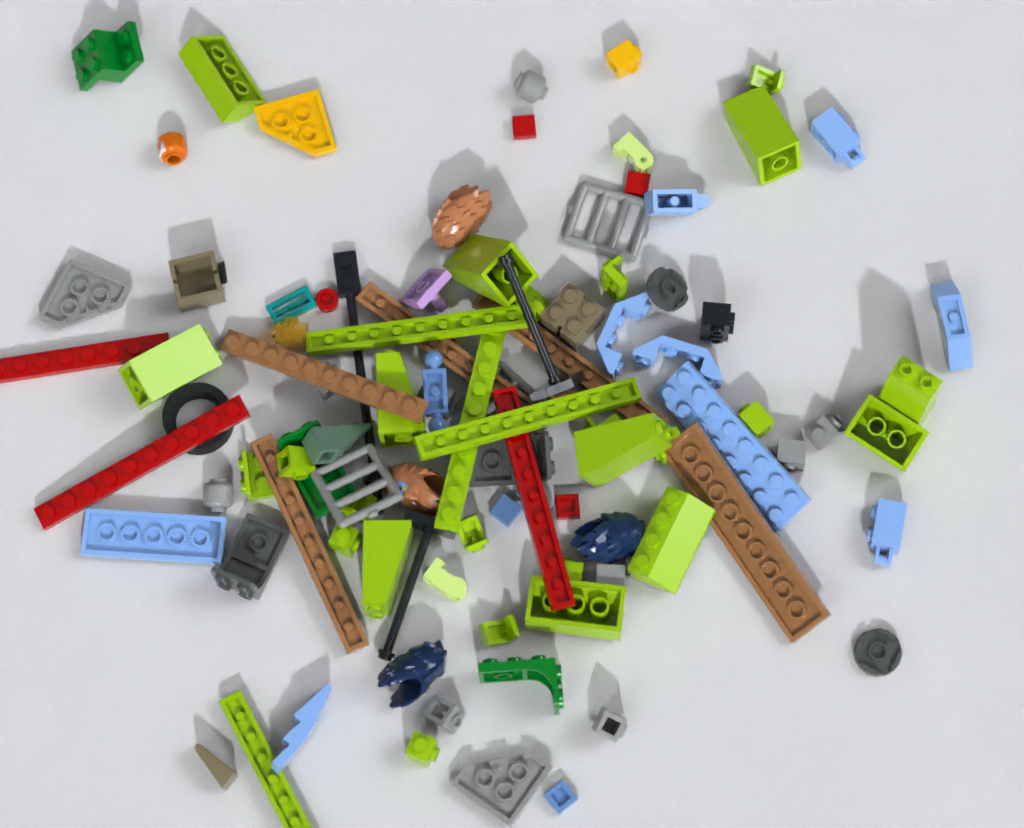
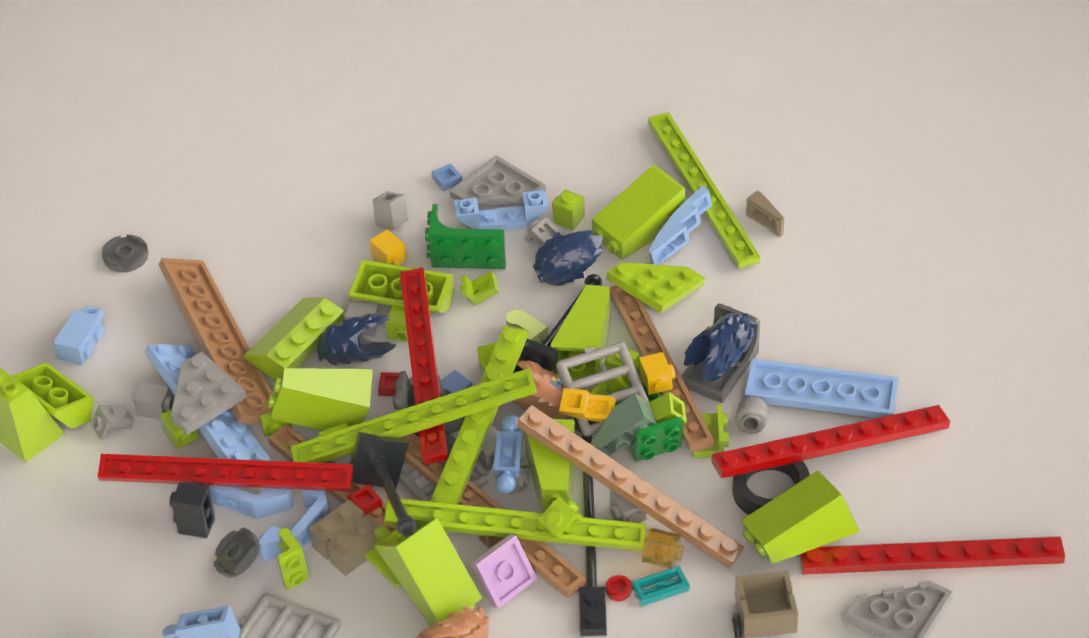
camera: 175 degrees left, 25 degrees down
(245, 548) = (721, 345): none -> dark blue head
(307, 509) = (656, 373): none -> yellow brick
(320, 651) = (656, 284): none -> lime plate
(346, 742) = (638, 212): none -> lime slope
(369, 460) = (586, 406): none -> yellow slope
(379, 331) = (560, 515): none -> lime bracket
(492, 739) = (503, 218): none -> light blue slope
(563, 353) = (366, 499): none -> red tile
(600, 668) = (388, 248): none -> yellow brick
(693, 353) = (225, 472): none -> red plate
(737, 439) = (203, 393): none -> light grey plate

